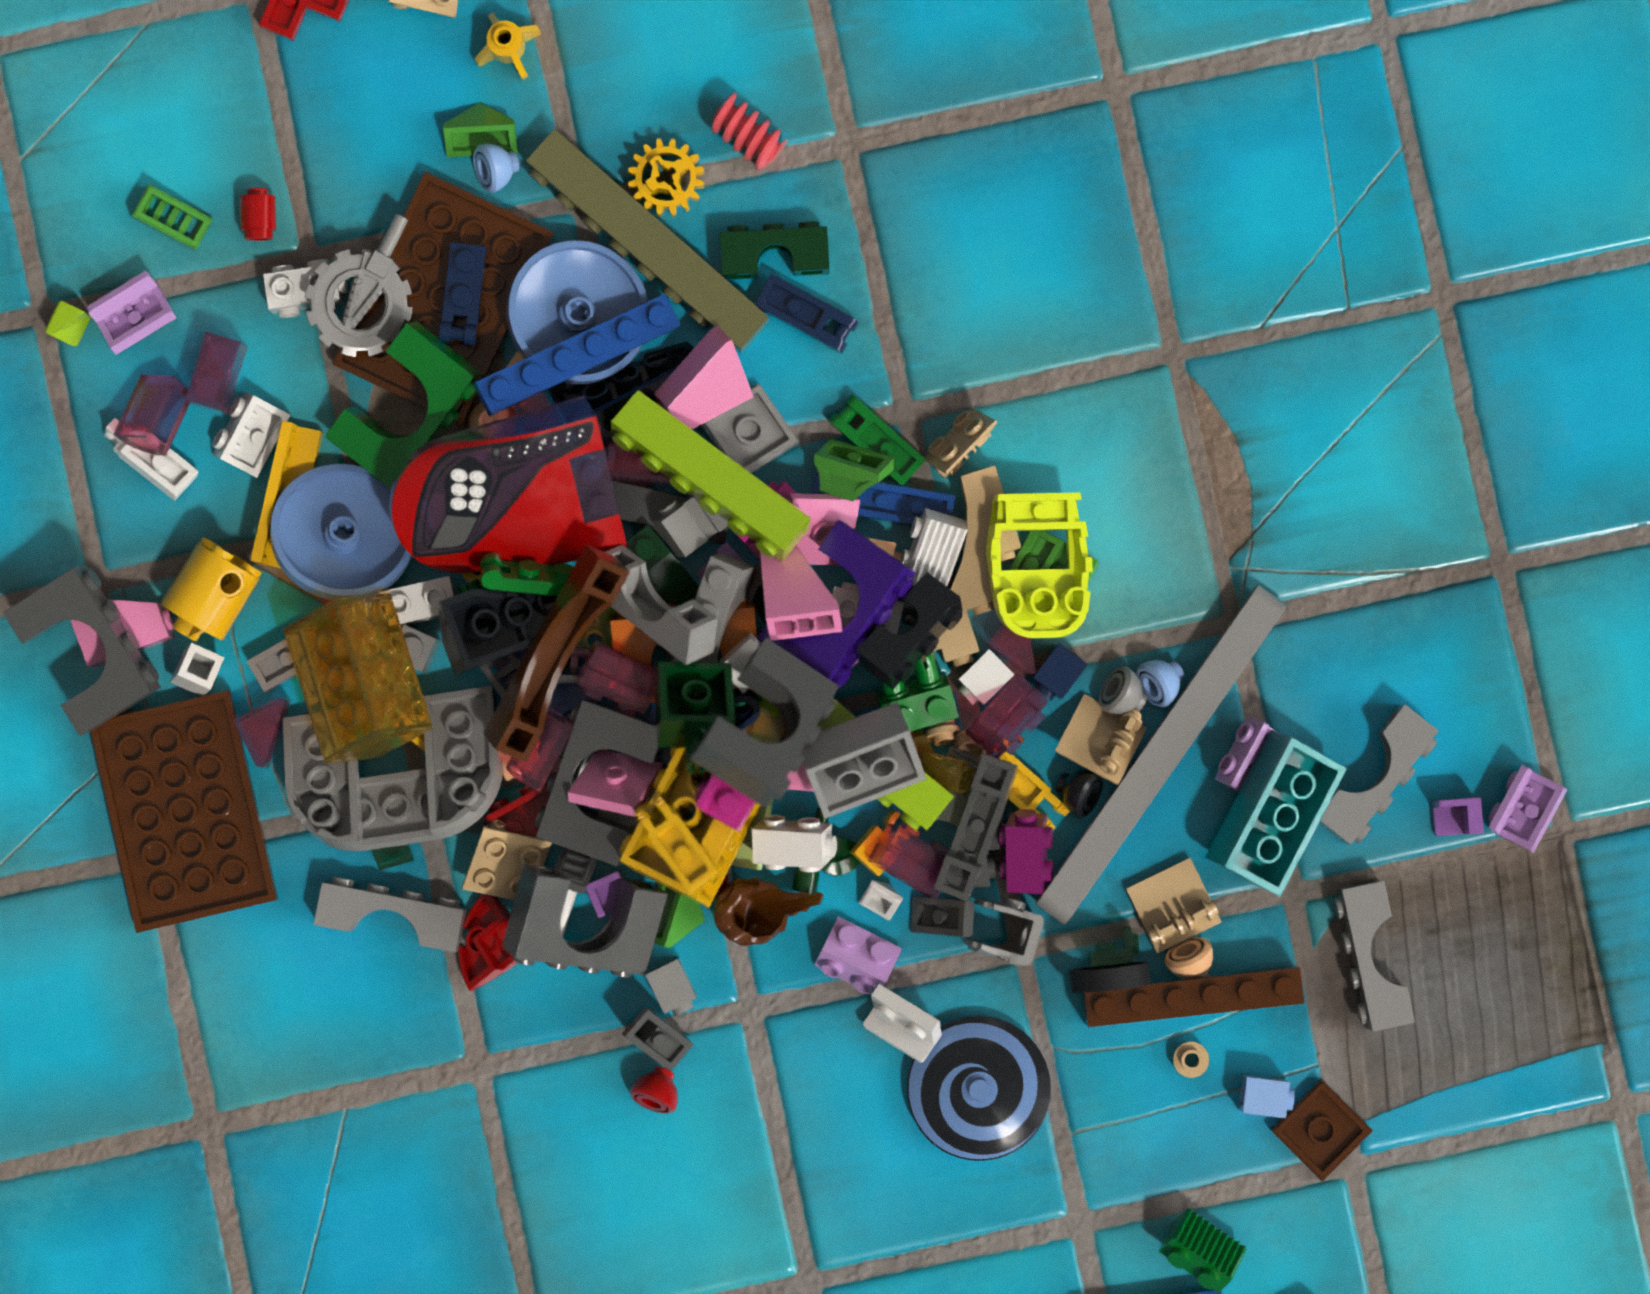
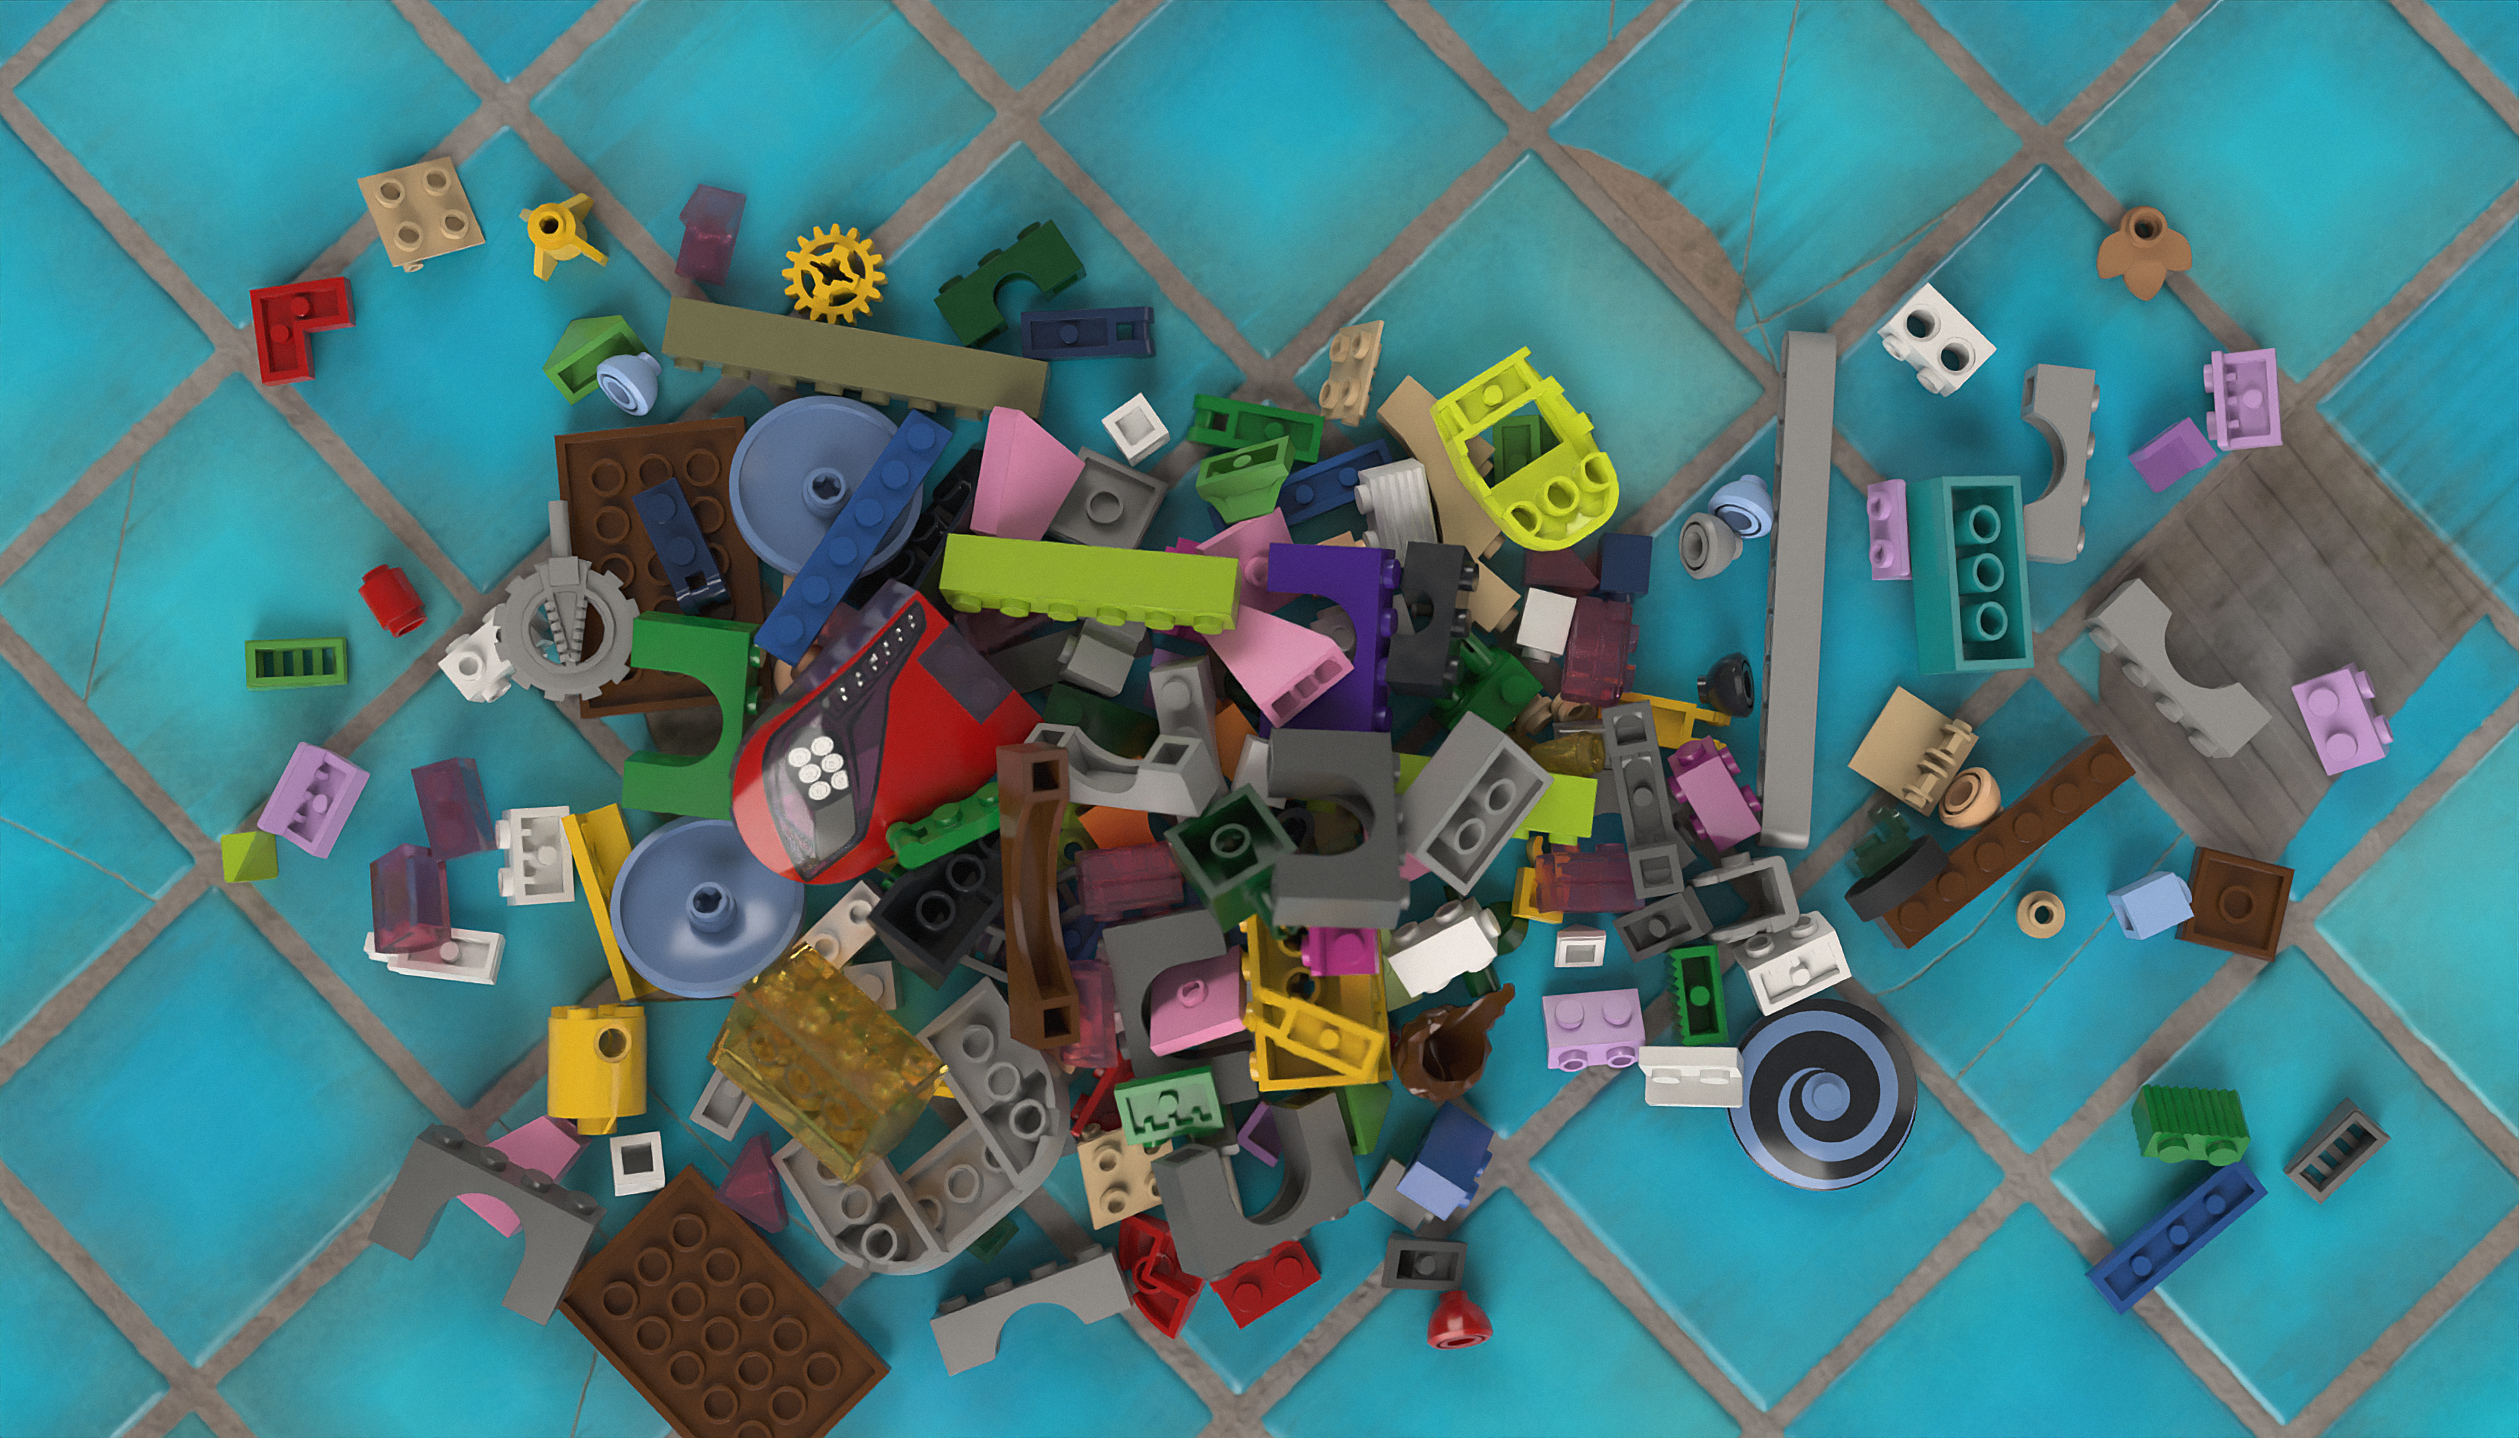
camera: 30 degrees left, 0 degrees up
(550, 988) = (1267, 1282): none -> red bracket
(557, 837) = (1170, 1106): none -> bracket
(603, 100) = (710, 234): none -> clear pink slope
(711, 981) = (1447, 1161): none -> blue brick
(747, 132) = (895, 169): coral piece -> none
(799, 394) = (1136, 430): none -> white brick
(936, 974) = (1696, 994): none -> green brick
(1012, 992) = (1792, 962): none -> white bracket
(1101, 739) = (1718, 613): tan hinge -> none
(1359, 647) = (1944, 331): none -> white brick
(1464, 1053) = (2343, 719): none -> lavender bracket
(1519, 679) = (2143, 260): none -> medium nougat plate

